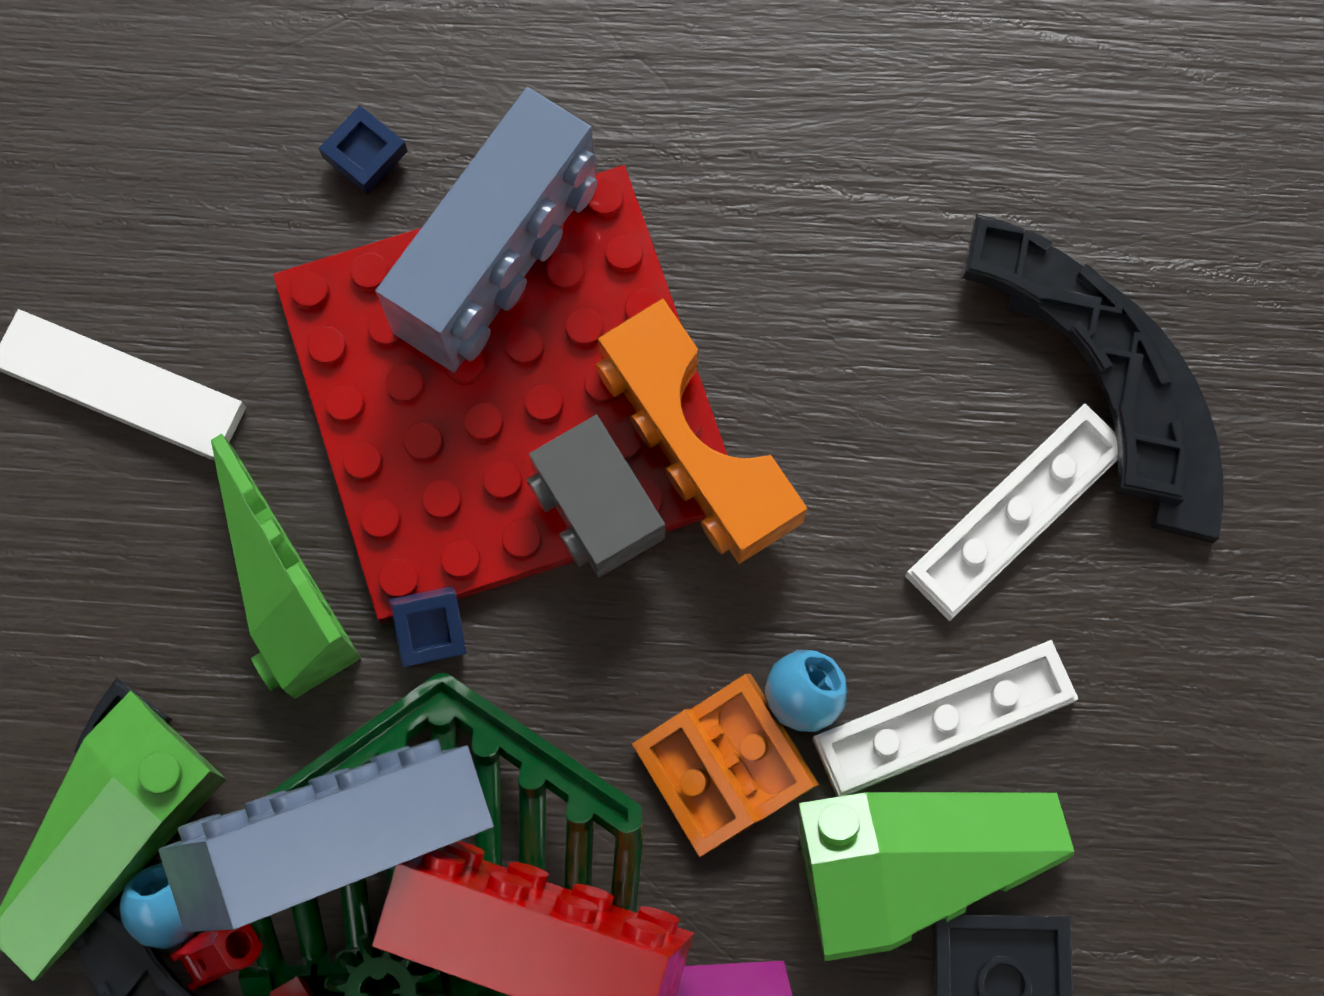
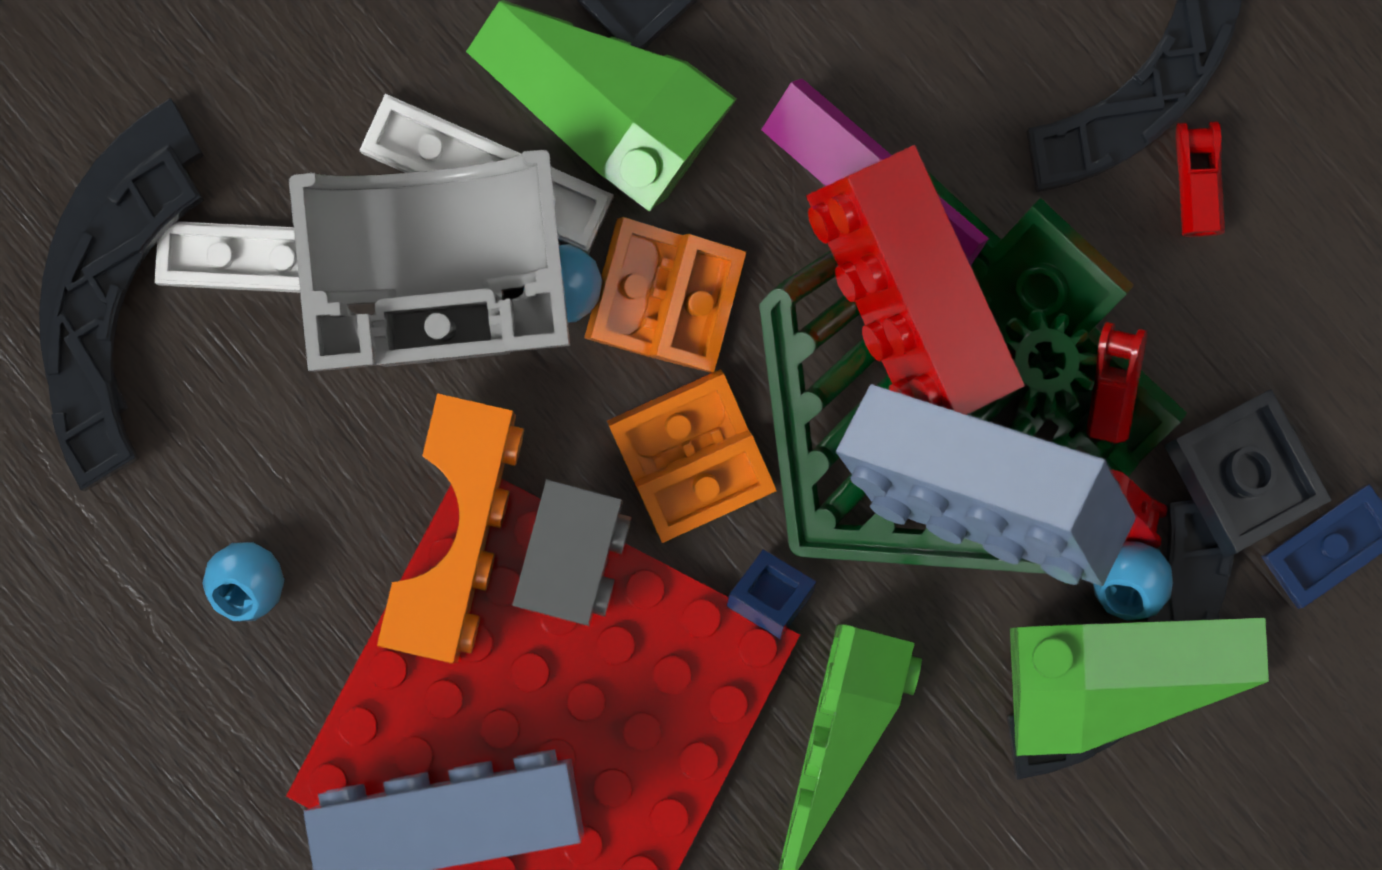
camera: 135 degrees left, 10 degrees up
(586, 668) = (691, 455): none -> orange slope
(803, 266) = (243, 581): none -> dark azure piece
(913, 610) = (433, 262): none -> light grey piece

